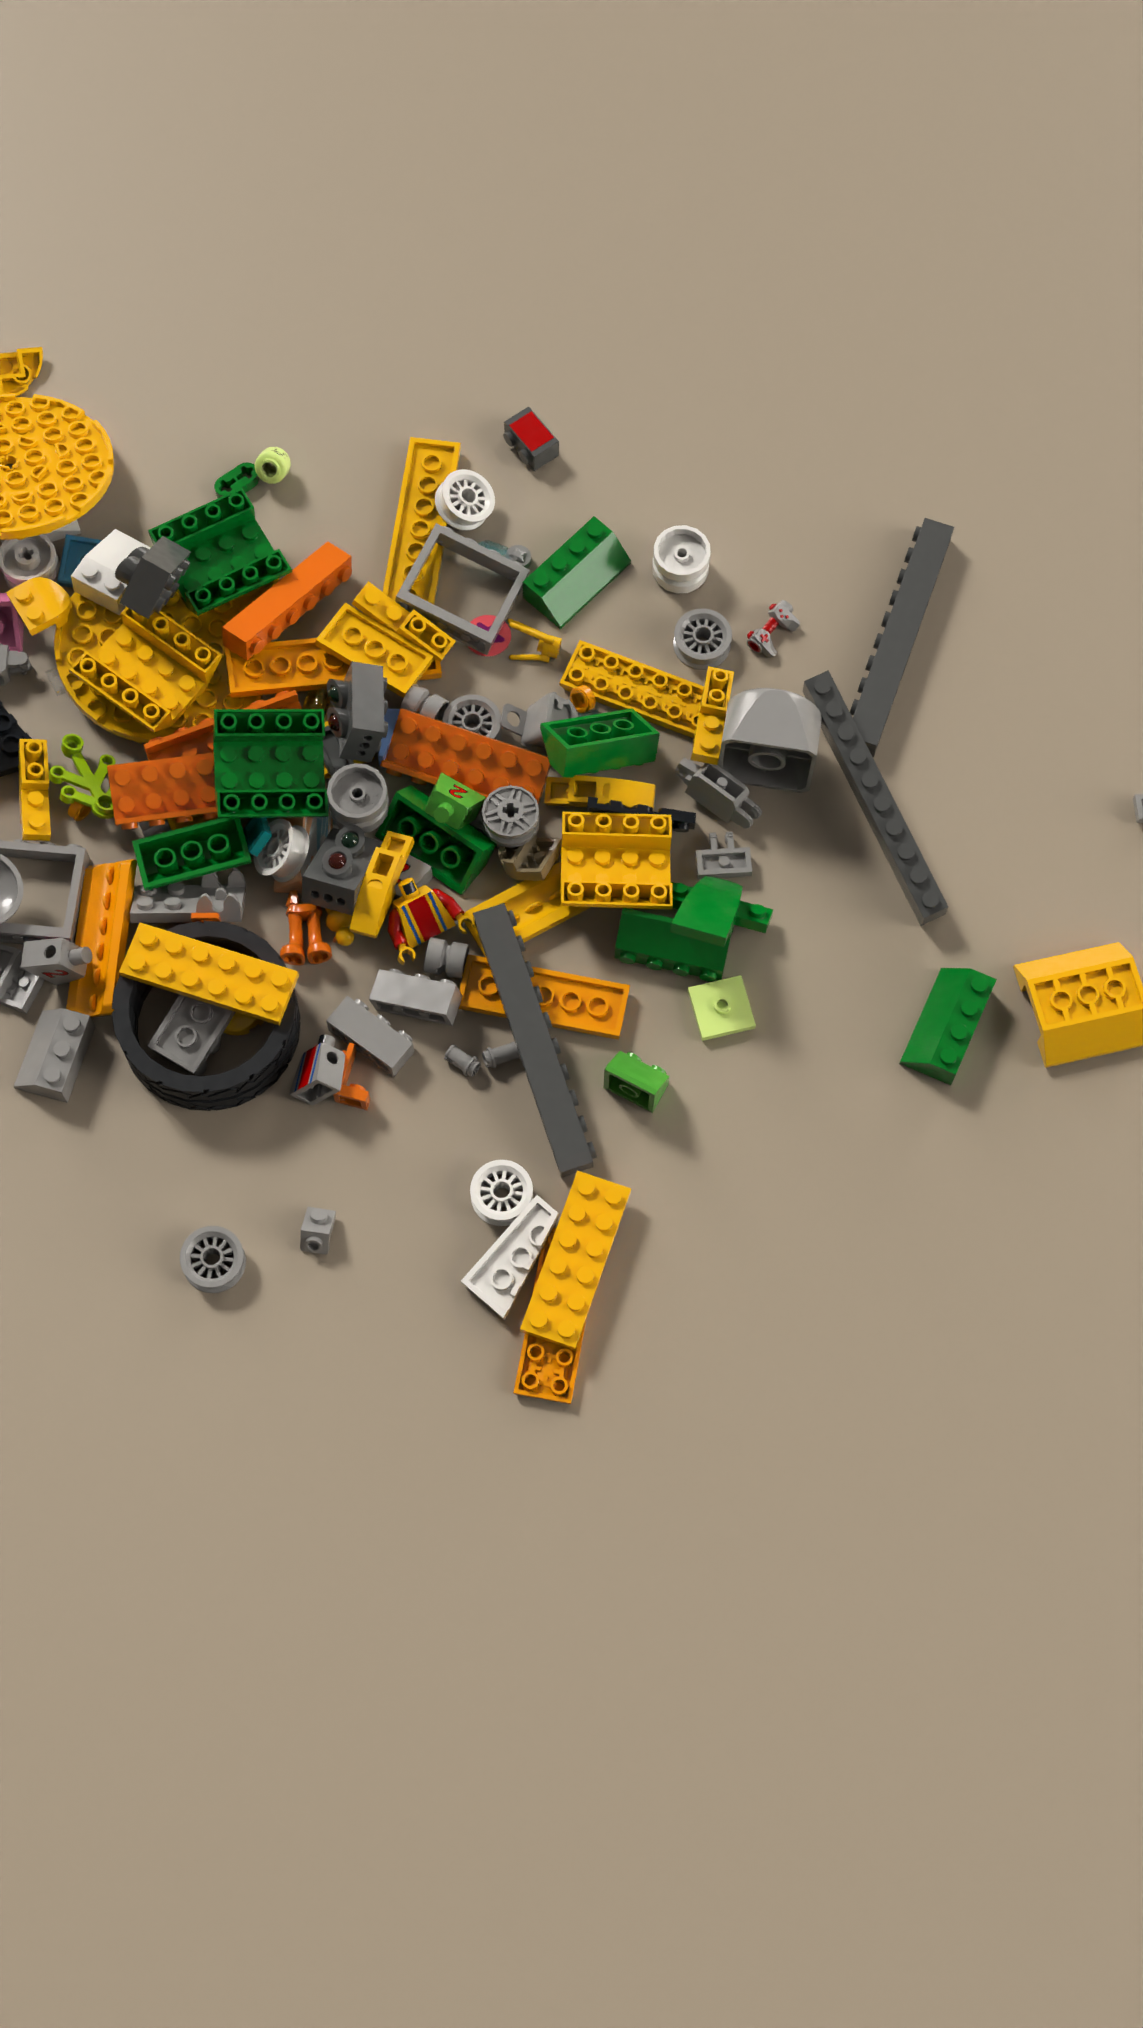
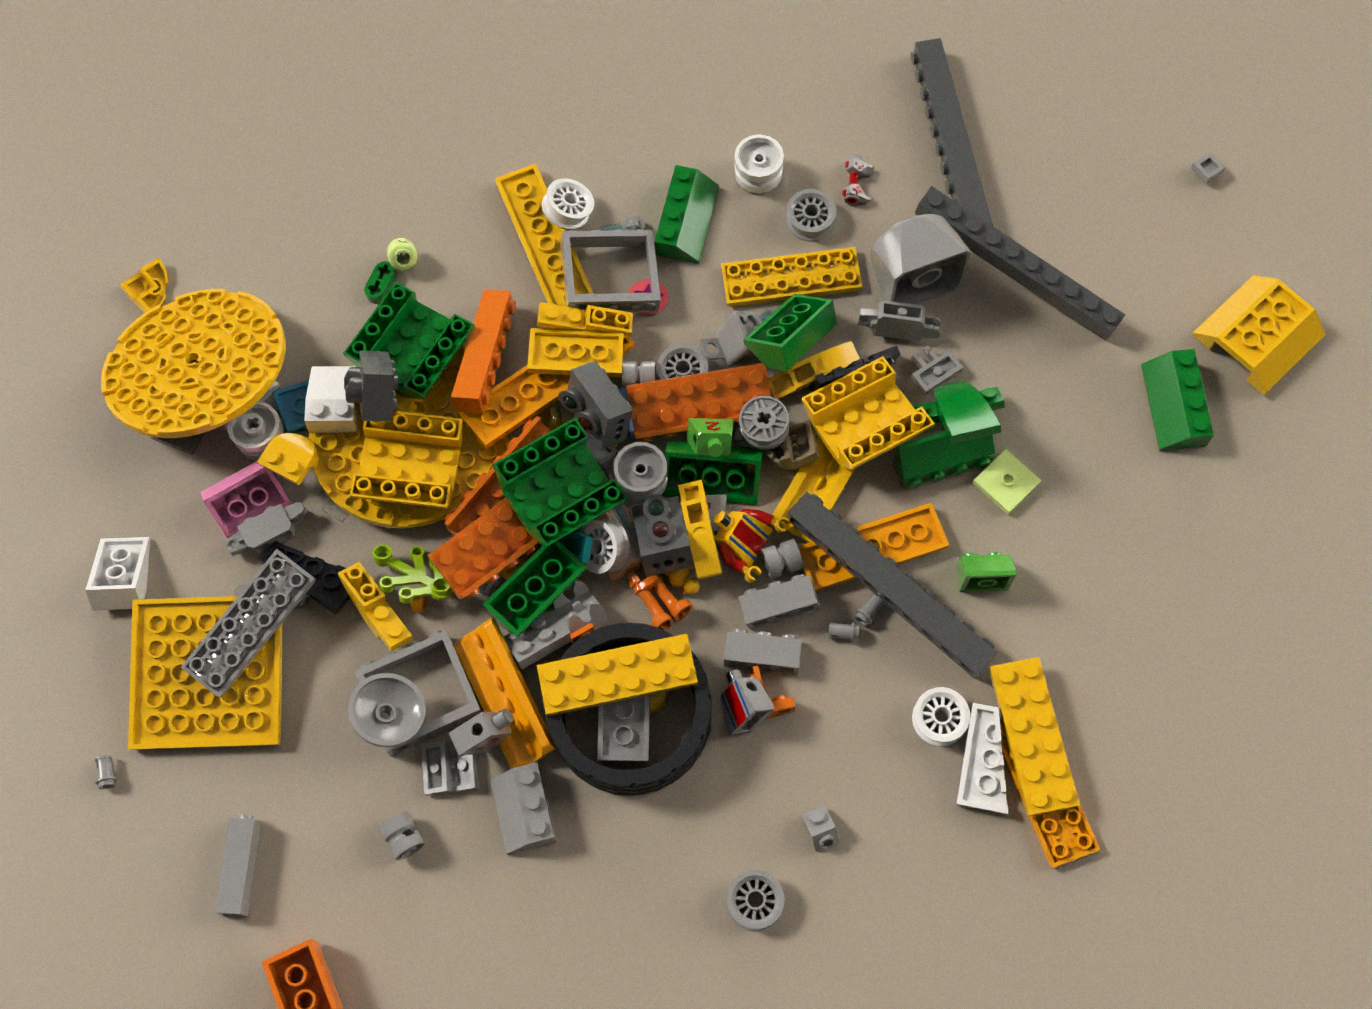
camera: 25 degrees left, 0 degrees up
(531, 438) = (586, 133): brick -> none
(548, 645) = (700, 280): yellow plant -> none
(582, 699) = (753, 304): light orange tile -> none
(712, 715) = (859, 267): yellow slope -> none

